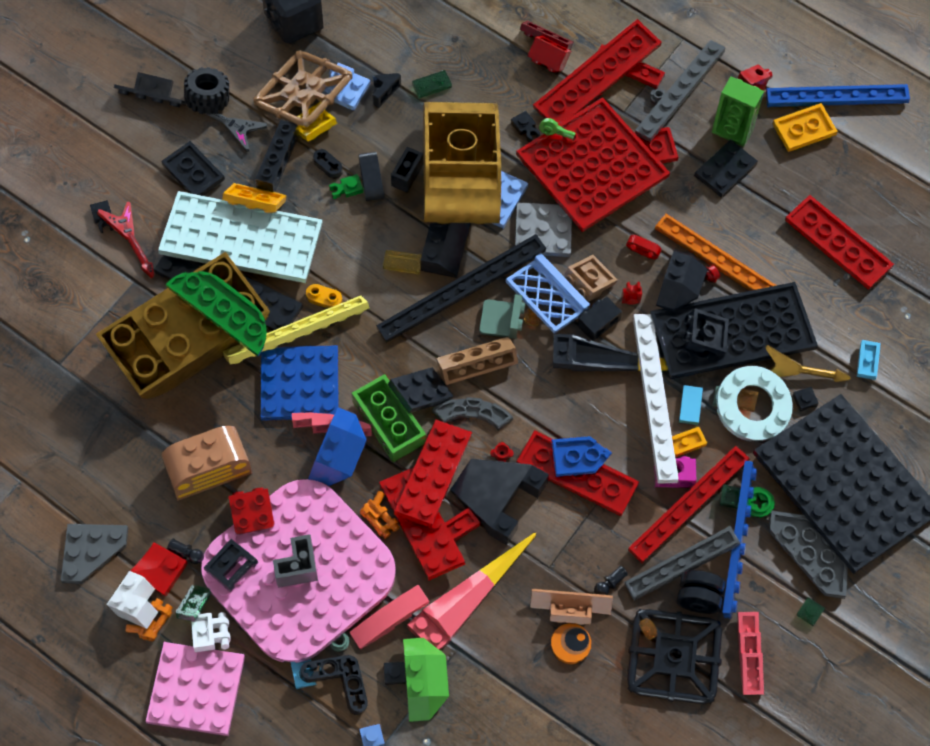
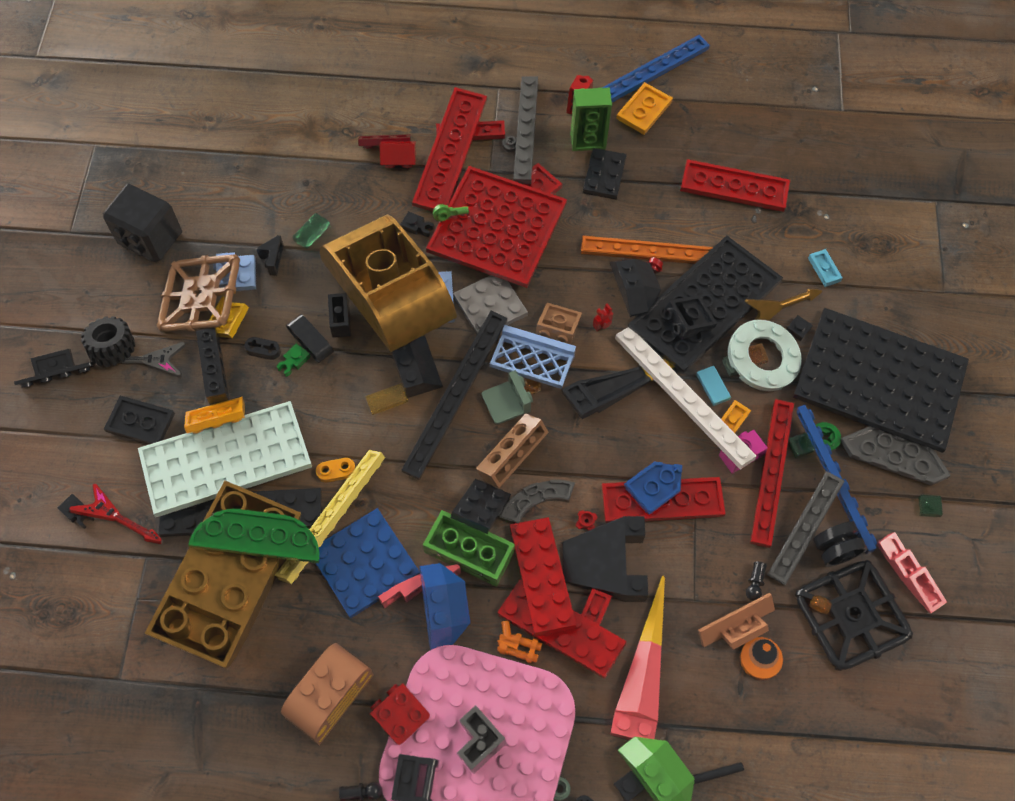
camera: 30 degrees left, 0 degrees up
(388, 617) = (590, 736): coral slope -> none
(471, 706) = (719, 772): none -> black bar
(599, 318) = (590, 354): black brick -> none
(643, 247) = (584, 273): red beam -> none

